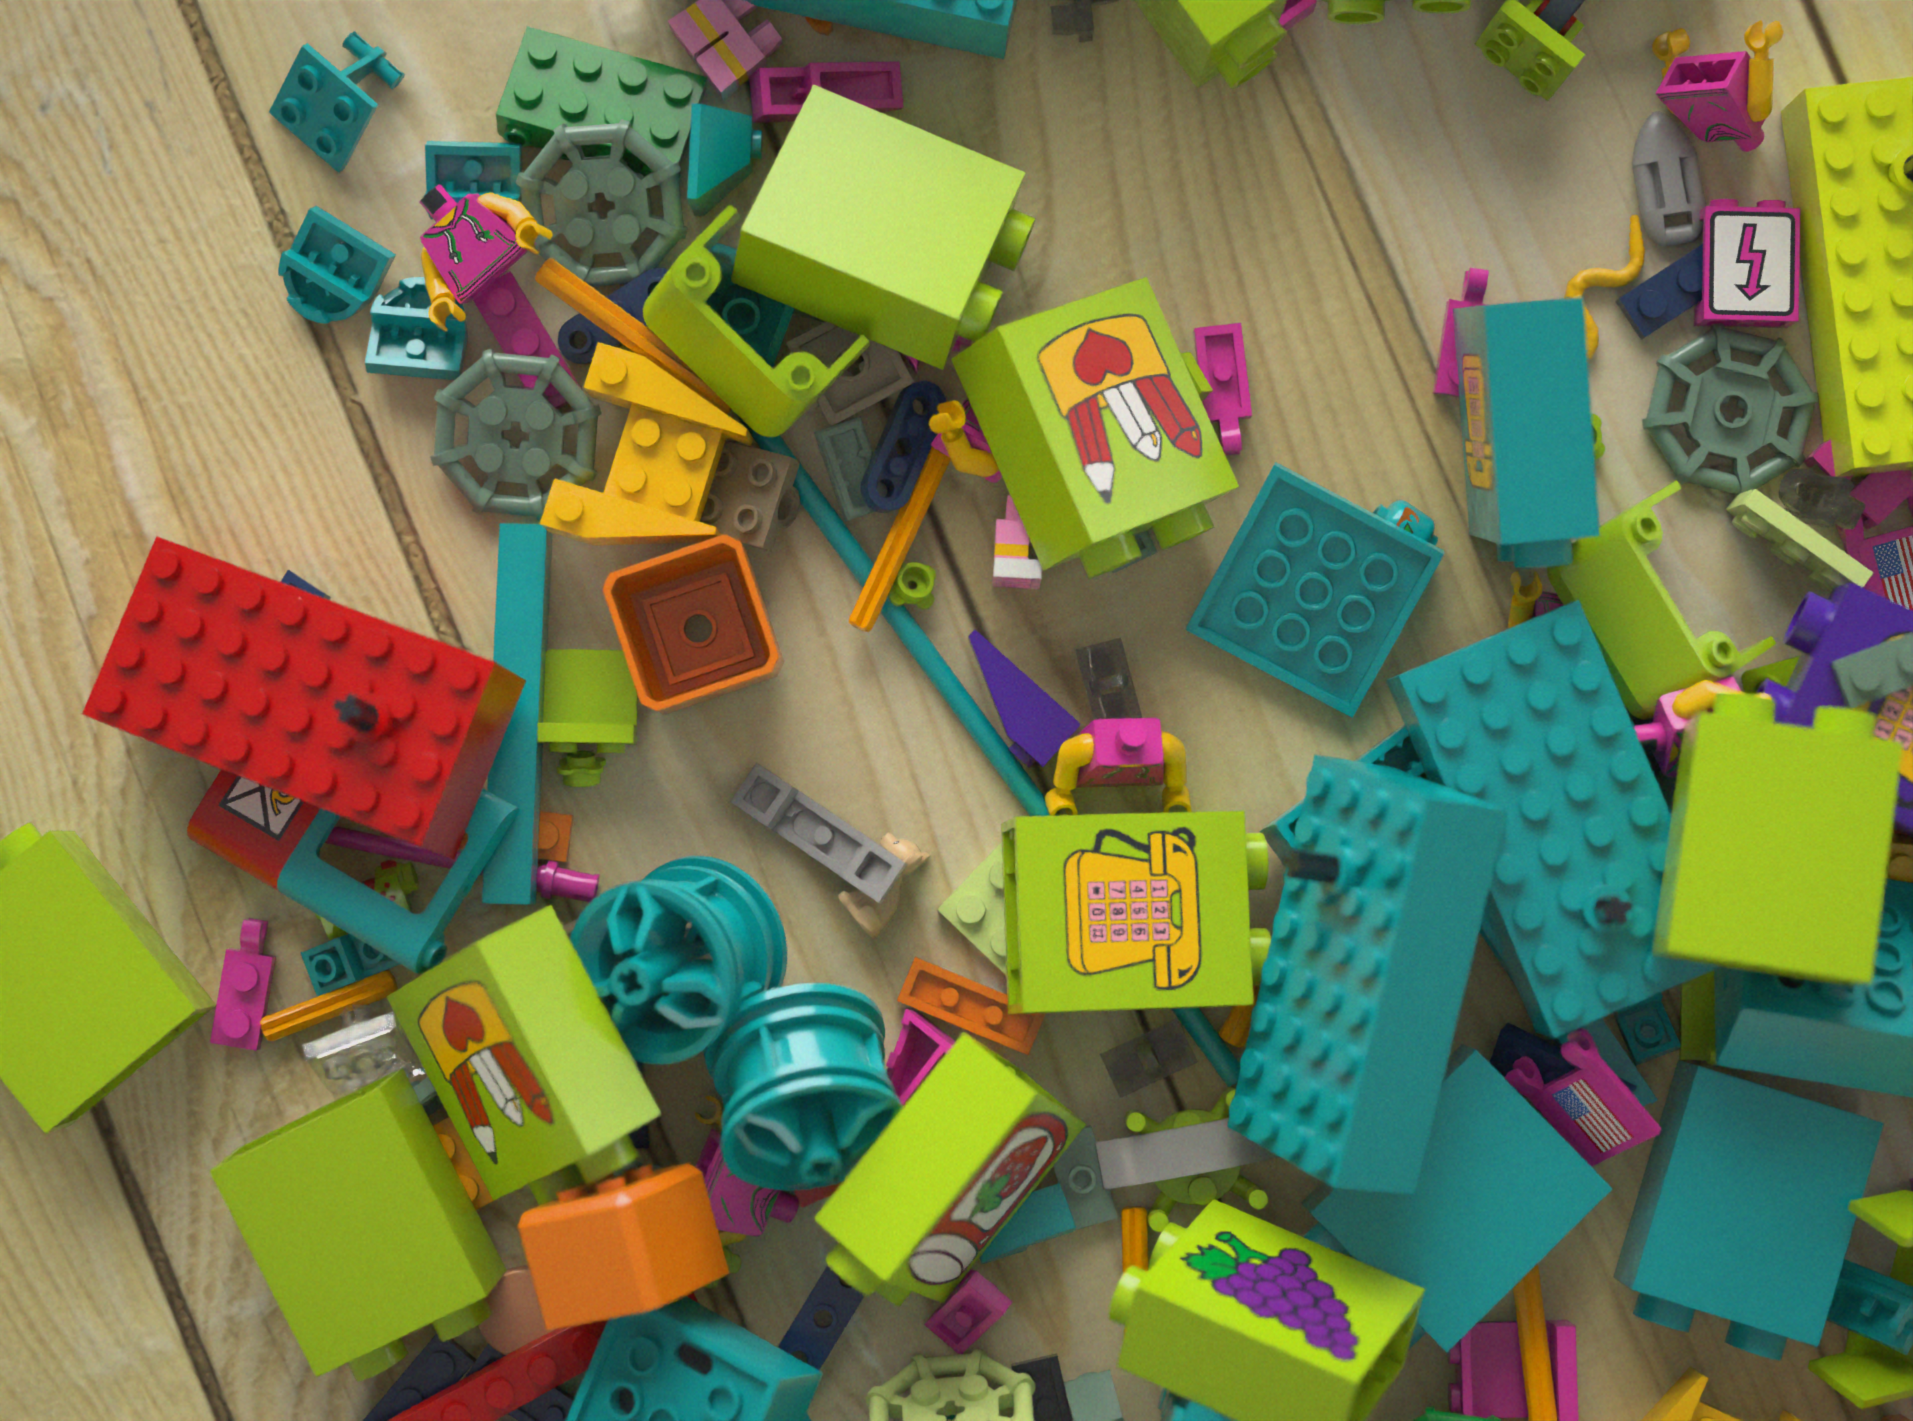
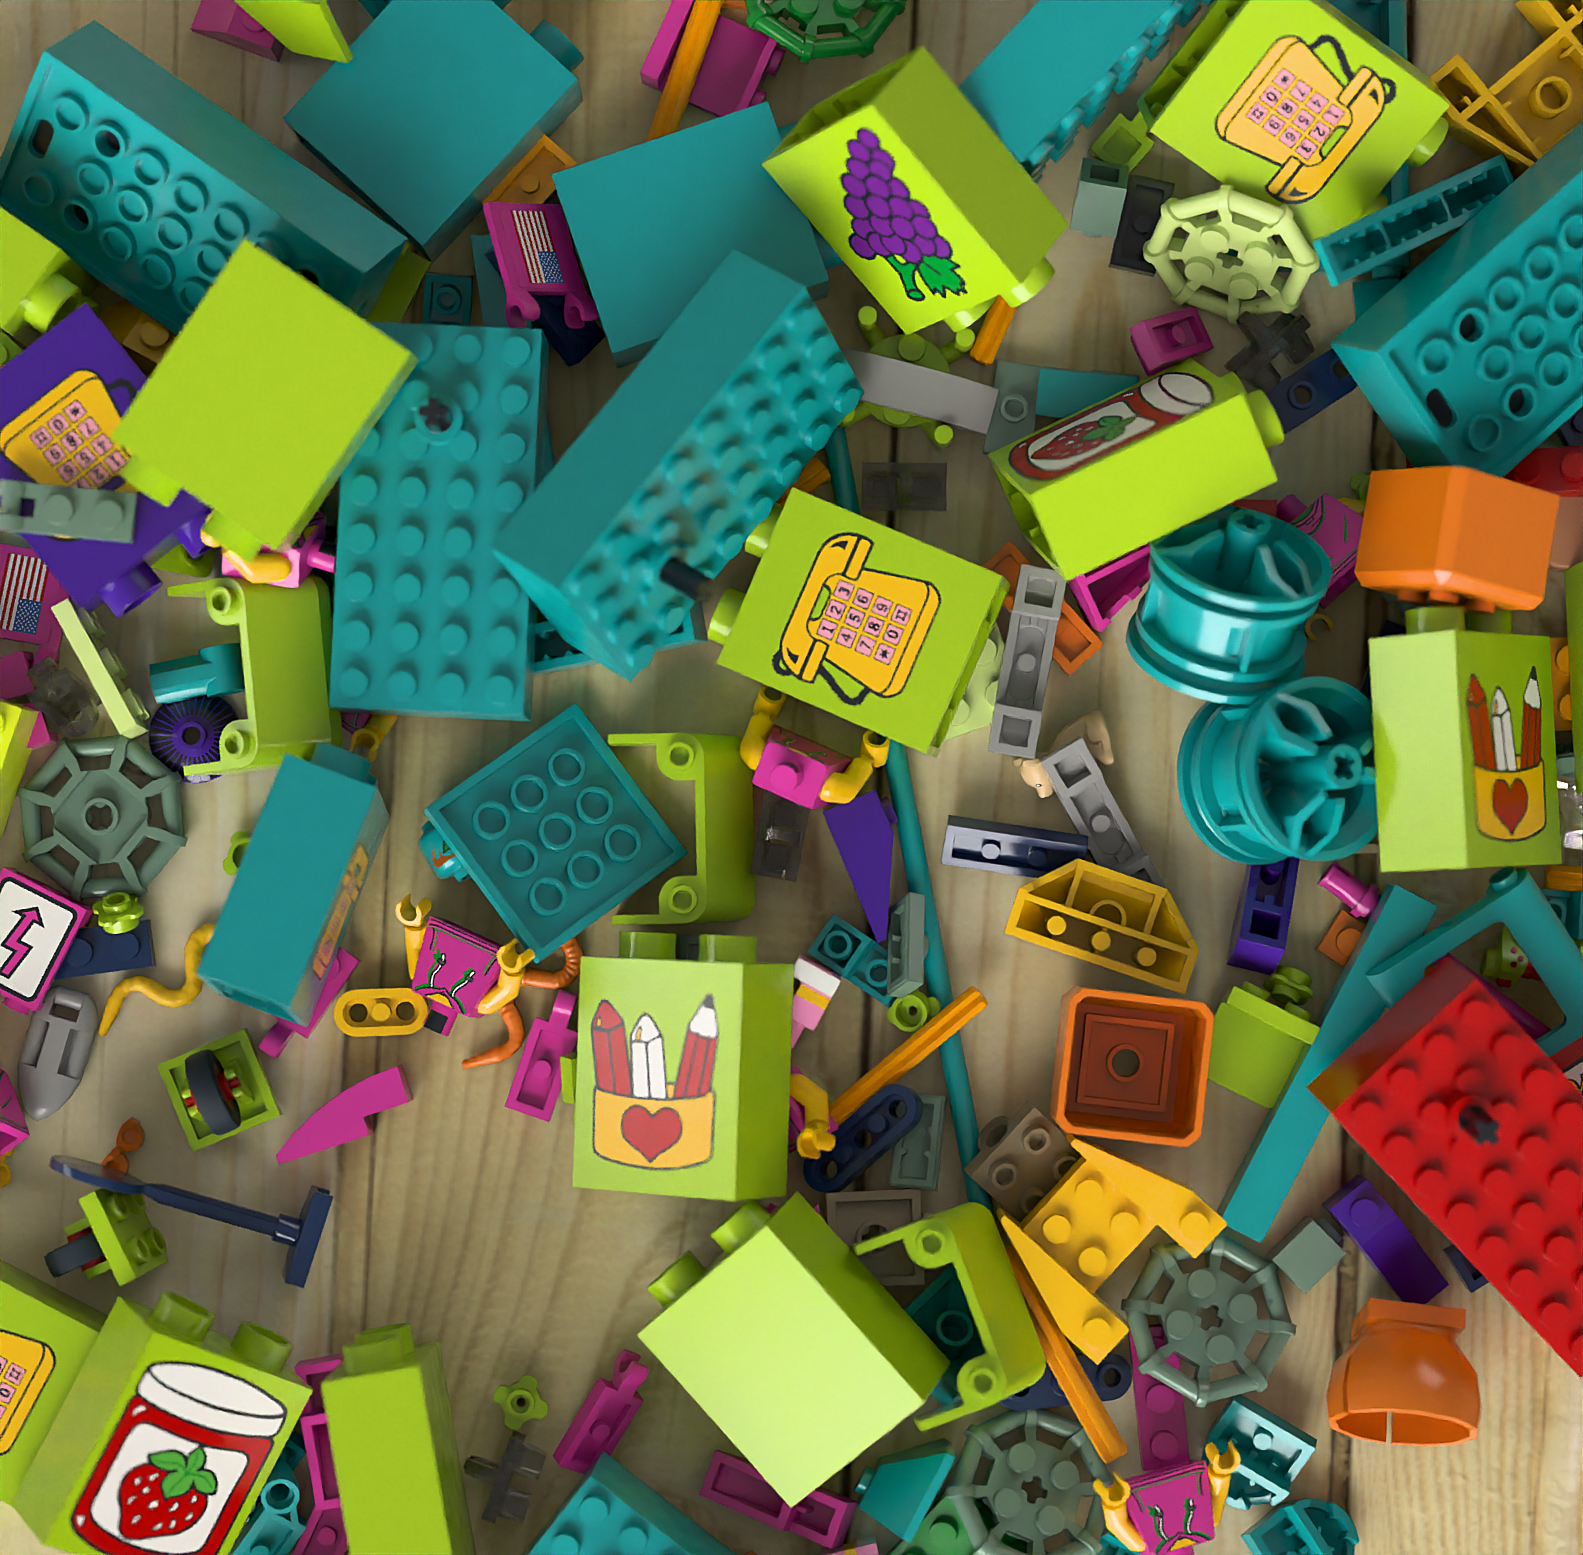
camera: 155 degrees left, 0 degrees up
(314, 471) = (1408, 1366): none -> orange plate
(385, 578) = (1385, 1241): none -> dark purple slope
(453, 536) = (1308, 1252): none -> sand green brick
(635, 820) = (1263, 916): none -> dark purple slope
(775, 746) = (1107, 923): none -> yellow wedge
(866, 1365) = (1282, 335): none -> clear smoke hips
(890, 774) = (1009, 847): none -> dark blue plate
(946, 639) = (906, 945): none -> sand green plate
(960, 947) = (1026, 662): none -> light grey slope
(981, 607) = (854, 957): none -> teal slope
(1018, 90) = (603, 1415): none -> dark pink plate
(1097, 81) = (526, 1389): none -> lime plate
(1164, 665) = (724, 828): none -> lime windscreen
(1278, 412) = (510, 1013): none -> orange animal
(1344, 427) = (458, 967): none -> torso
(1370, 121) = (300, 1234): none -> dark blue piece
(1377, 249) = (348, 1114): none -> dark pink slope
(1391, 355) = (382, 1012): none -> yellow plate
(1503, 216) = (219, 1089): none -> lime plate
(1563, 107) = (129, 1138): none -> orange piece
(1628, 1177) = (532, 178): none -> light orange plate
(1673, 331) = (118, 912): none -> lime plate
(1699, 585) = (212, 673): none -> teal piece
(1705, 540) = (175, 718): none -> dish

